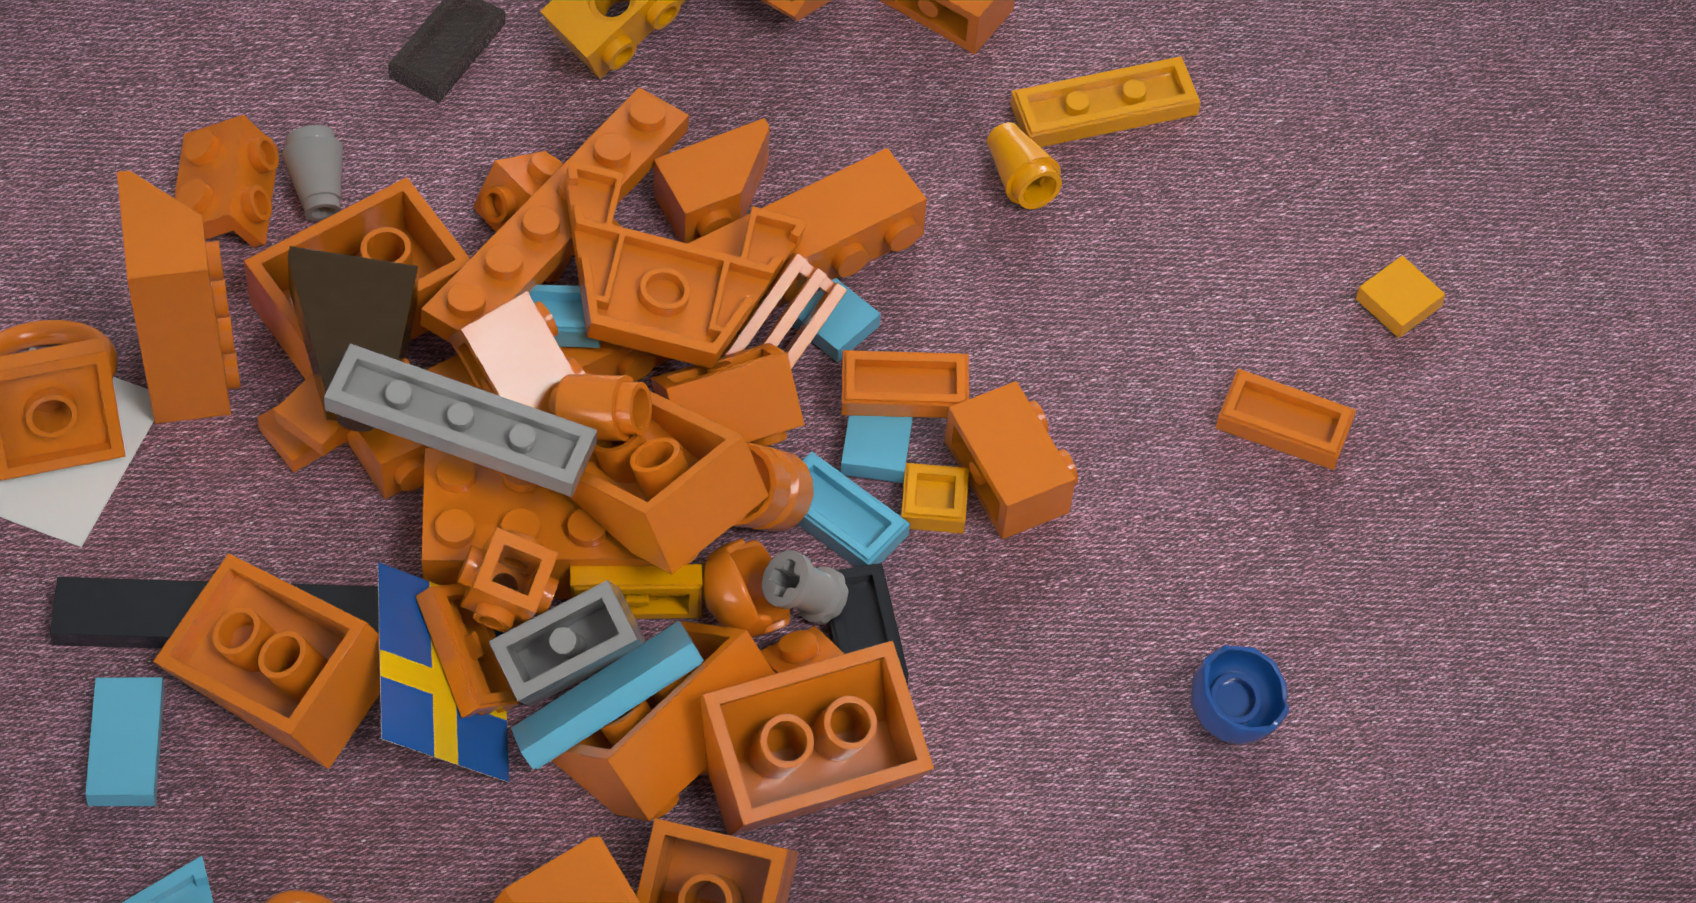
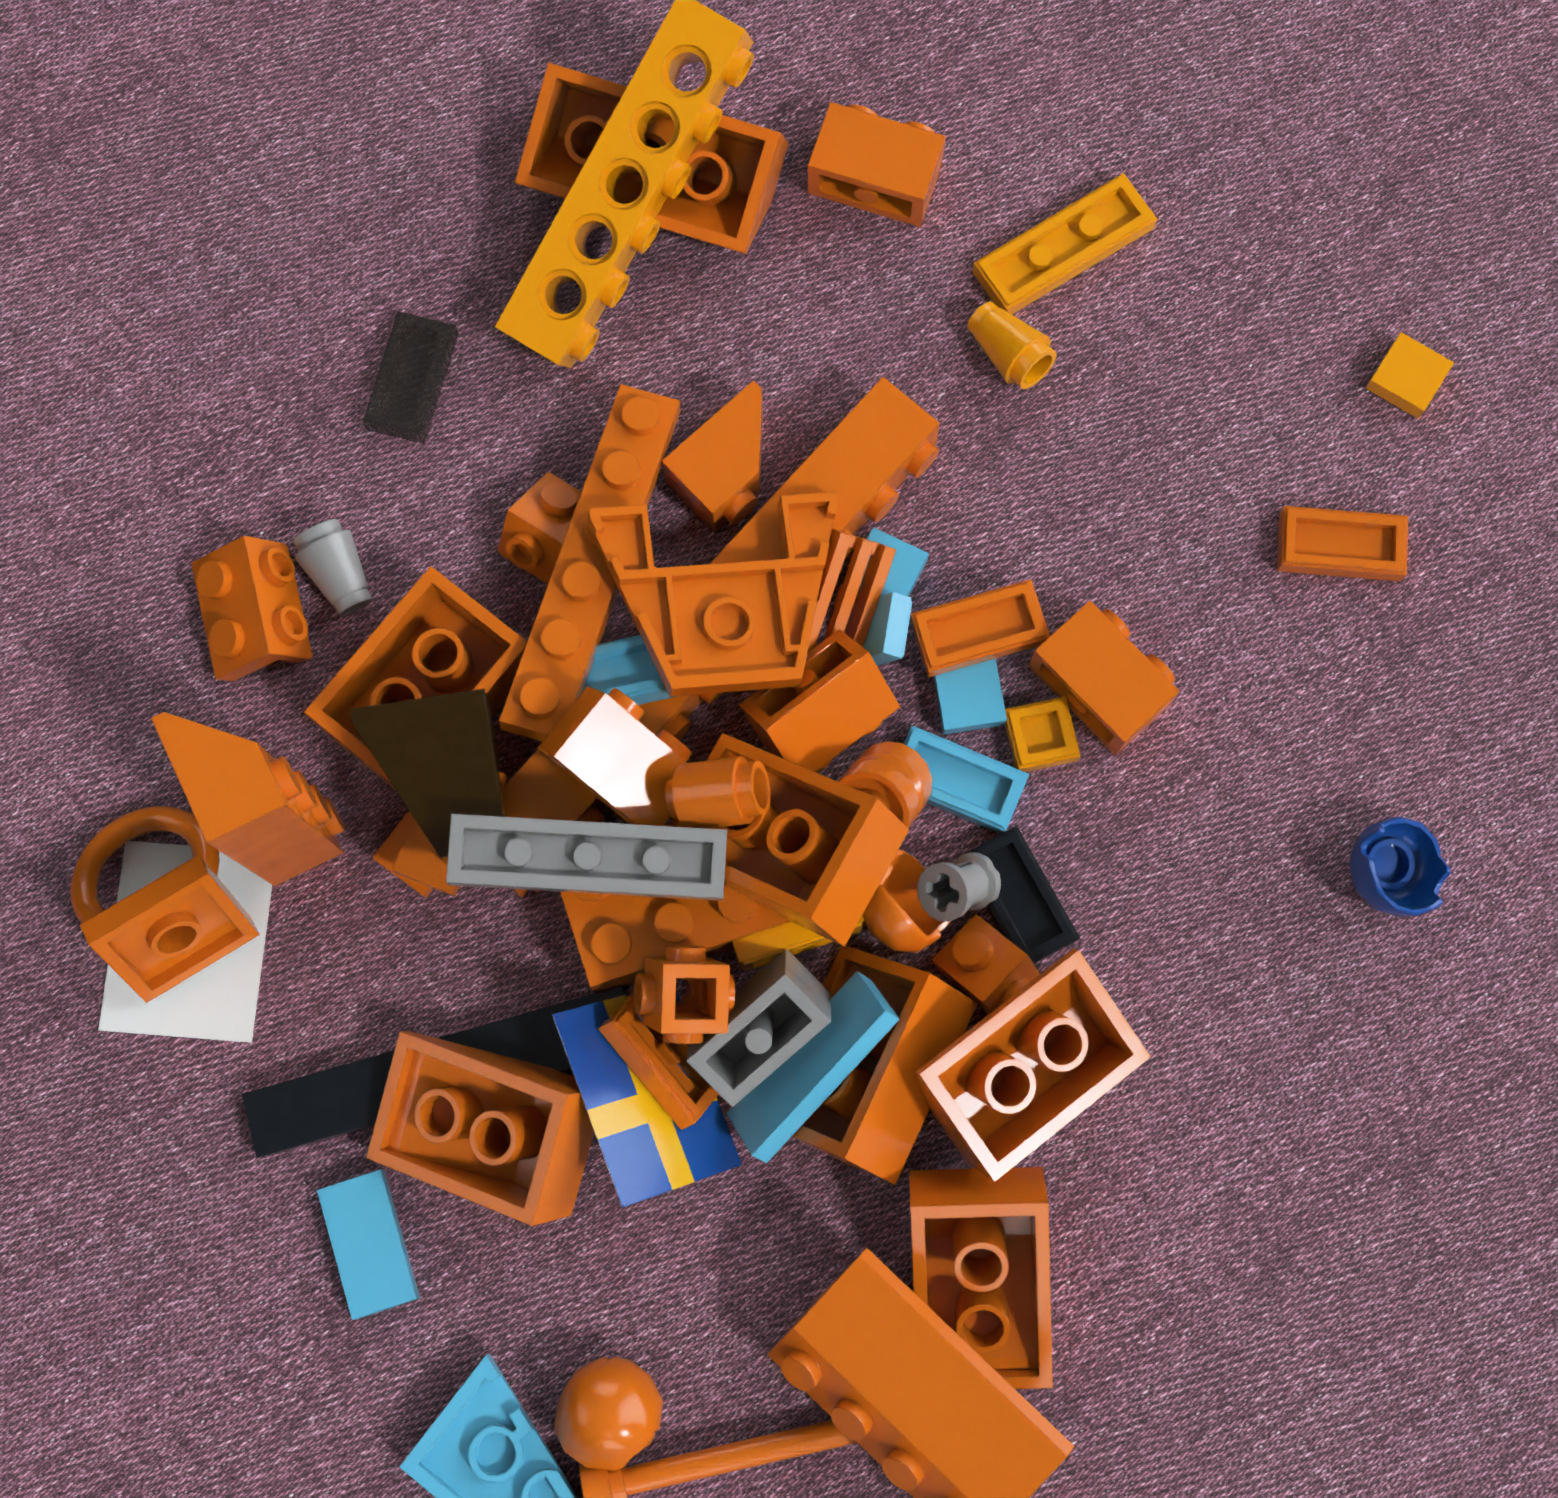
camera: 10 degrees left, 20 degrees up
(818, 358) = (889, 628): none -> medium azure tile

